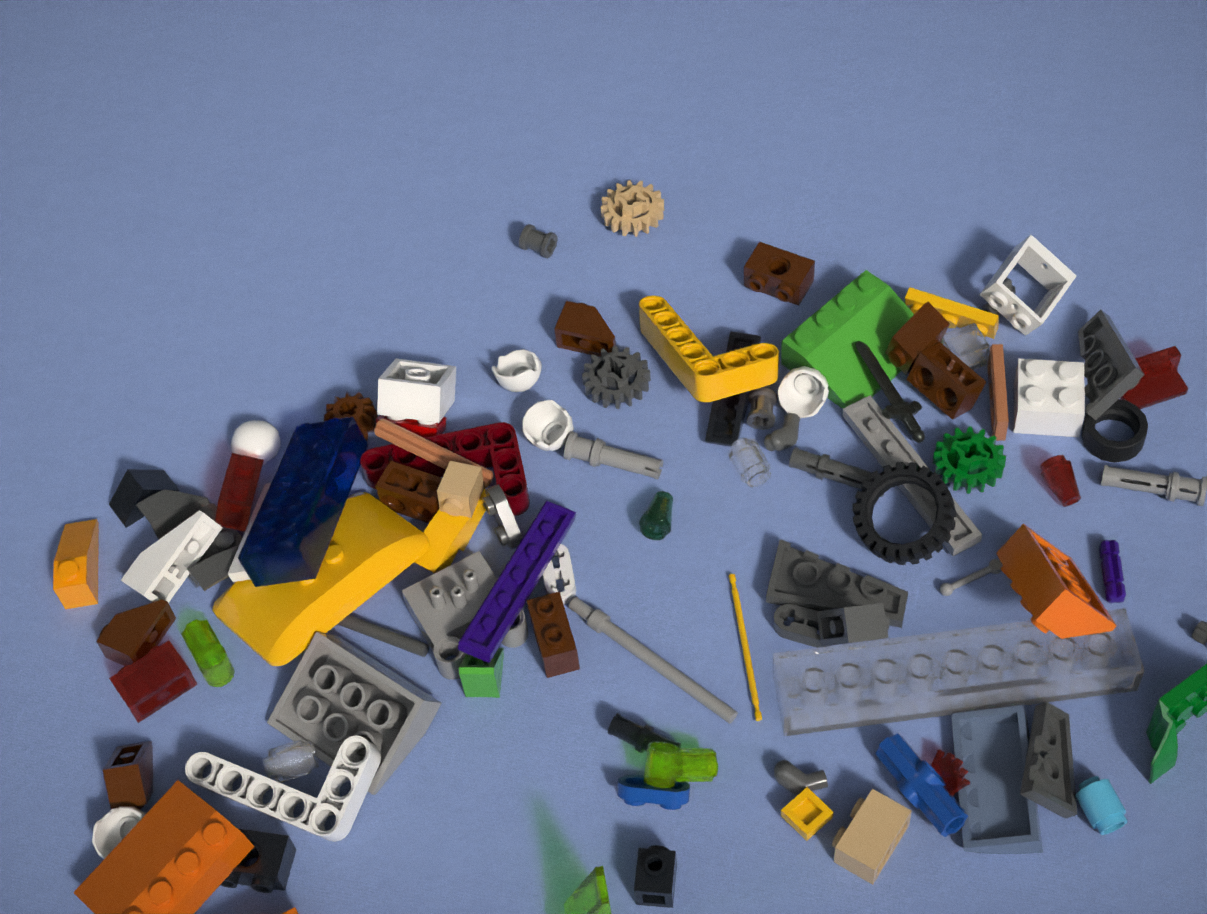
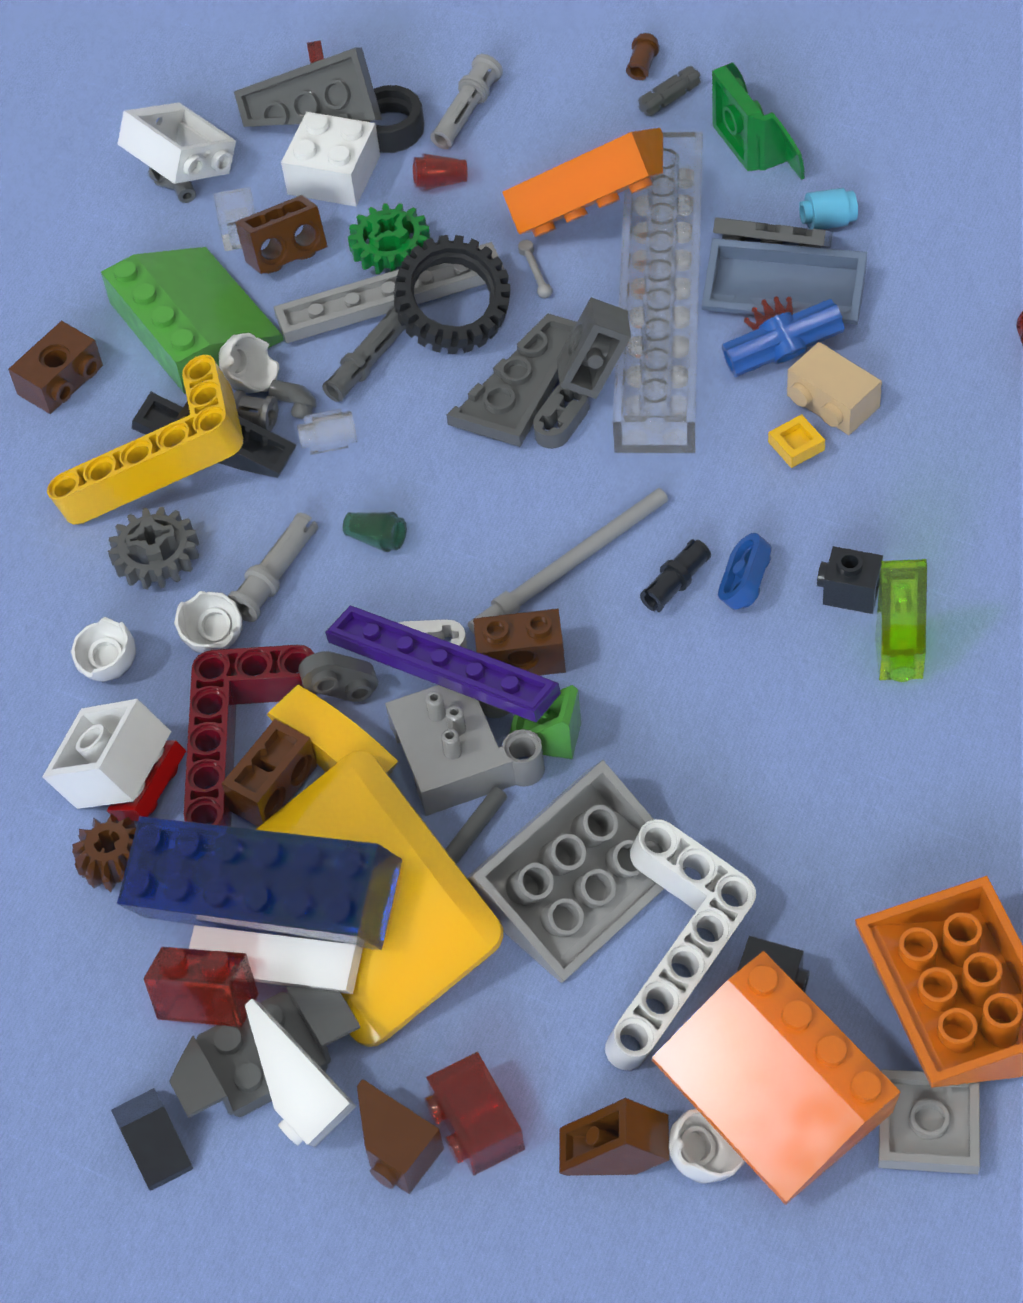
camera: 80 degrees left, 0 degrees up
(77, 565) = (244, 1221): light orange slope -> none
(208, 652) = (440, 1043): clear neon green piece -> none
(256, 440) = (107, 982): white hair -> none
(291, 760) = (633, 943): clear brick -> none
(423, 447) = (221, 737): nougat axle -> none
(460, 489) = (298, 700): tan brick -> none
(583, 330) = (66, 572): reddish brown slope -> none
(670, 764) = (722, 538): clear neon green piece -> none
(745, 647) = (550, 475): yellow piece -> none
(795, 780) = (752, 447): dark grey arm -> none
(899, 410) = (302, 285): pearl dark grey sword -> none
(917, 334) = (223, 238): reddish brown slope -> none
(955, 313) = (184, 217): yellow plate -> none
(997, 392) = (333, 201): nougat tile -> none
(1112, 571) = (552, 154): dark purple axle -> none

